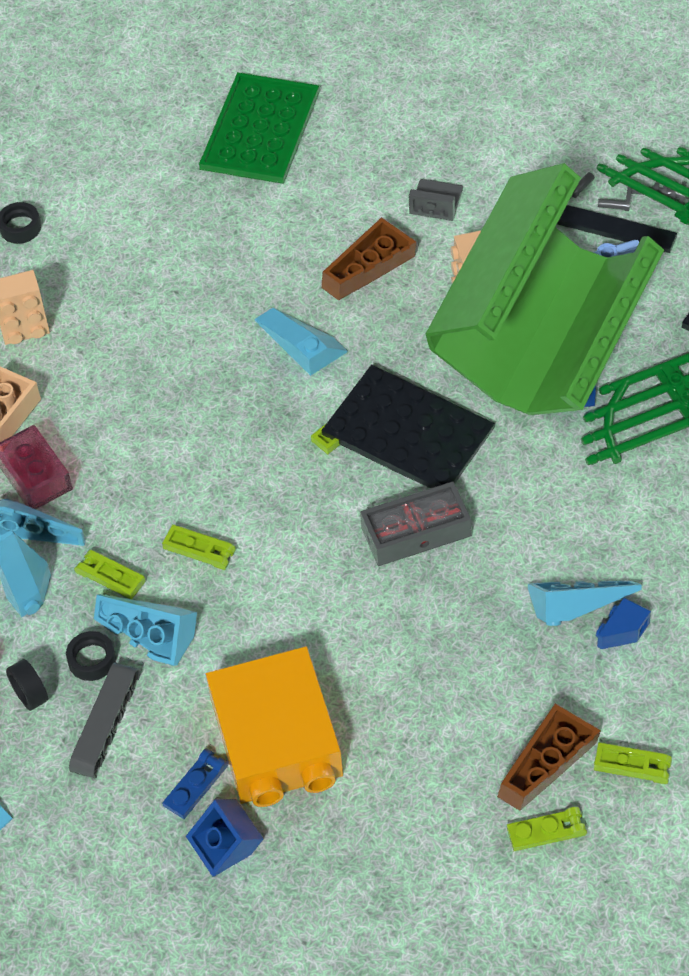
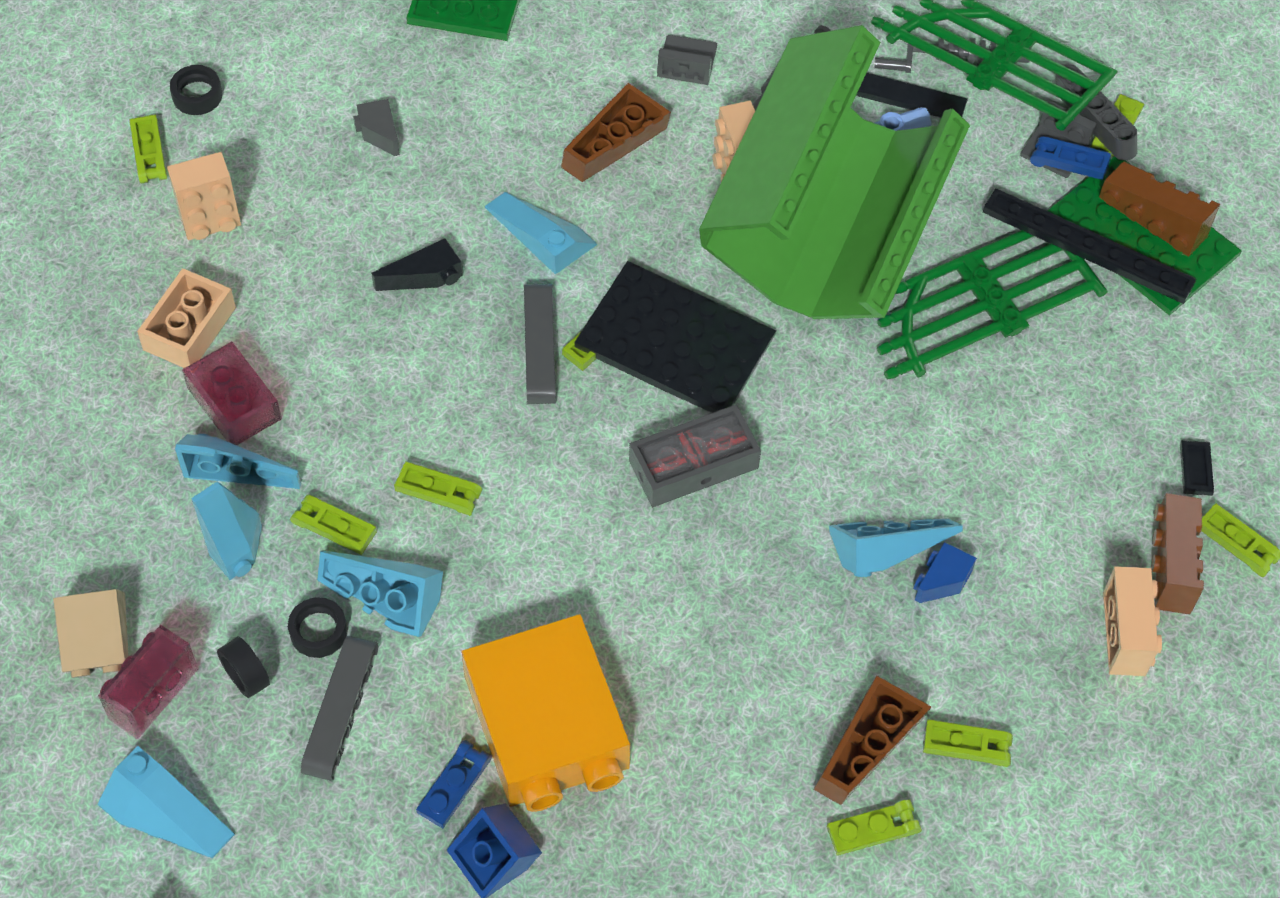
camera: 10 degrees left, 5 degrees up
(168, 252) = (377, 125): none -> dark grey slope
(199, 369) = (422, 269): none -> black slope
(291, 431) = (539, 344): none -> dark grey beam

